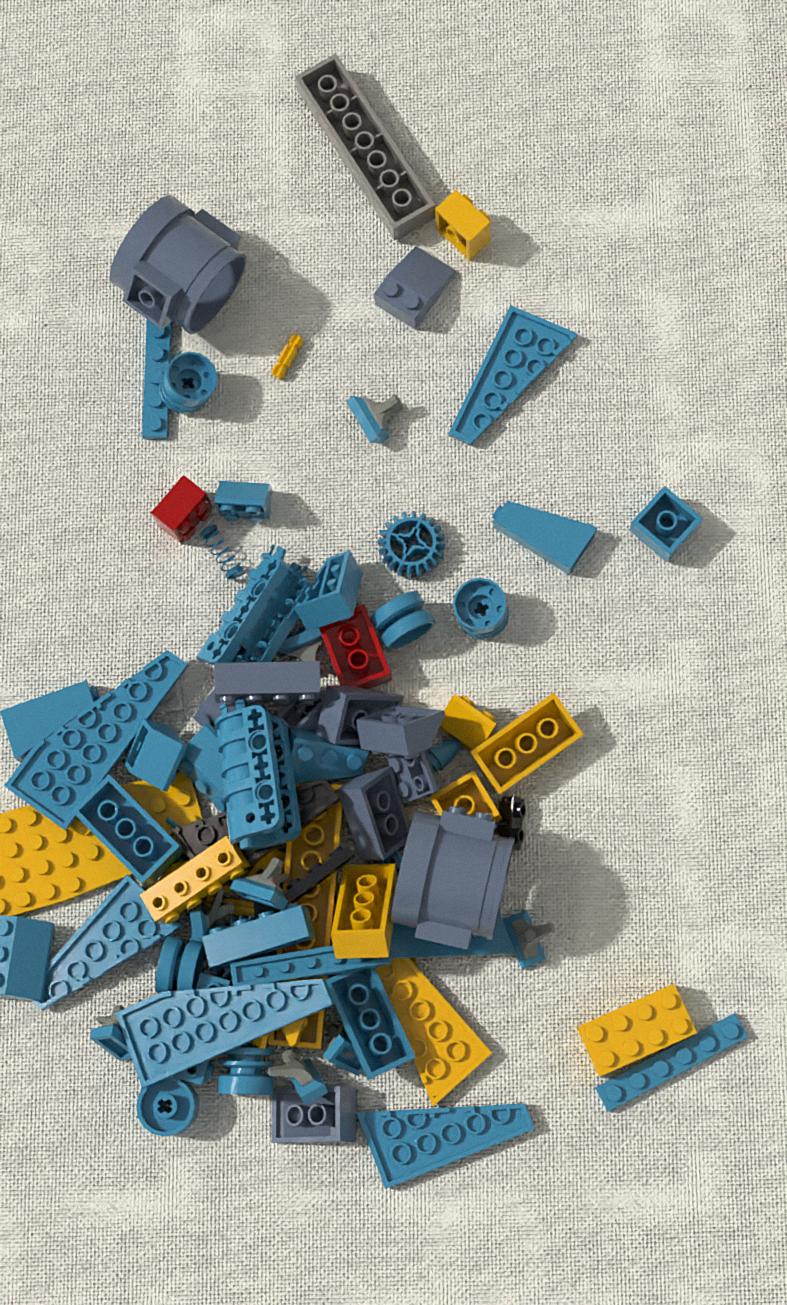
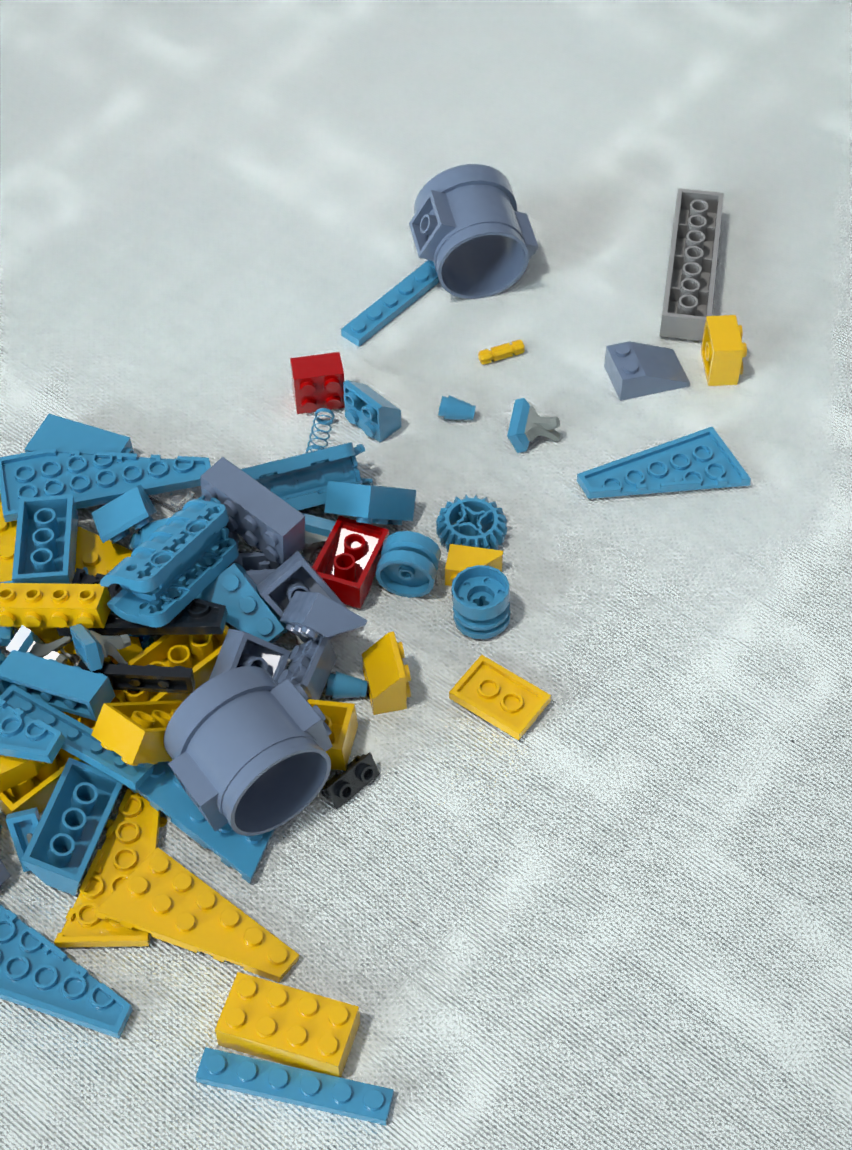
camera: 30 degrees right, 25 degrees down
(194, 371) = (407, 311): dark azure wheel -> none
(302, 443) = (456, 409): none -> dark azure cone
(440, 581) = (462, 557): none -> yellow slope
(493, 1013) = (190, 914): none -> yellow wing
(526, 743) = (418, 721): yellow slope -> none
(527, 938) = (270, 877): piece -> none
(548, 535) = (590, 595): dark azure slope -> none
(555, 669) = (500, 697): none -> yellow plate
(665, 524) = (700, 653): dark azure brick -> none

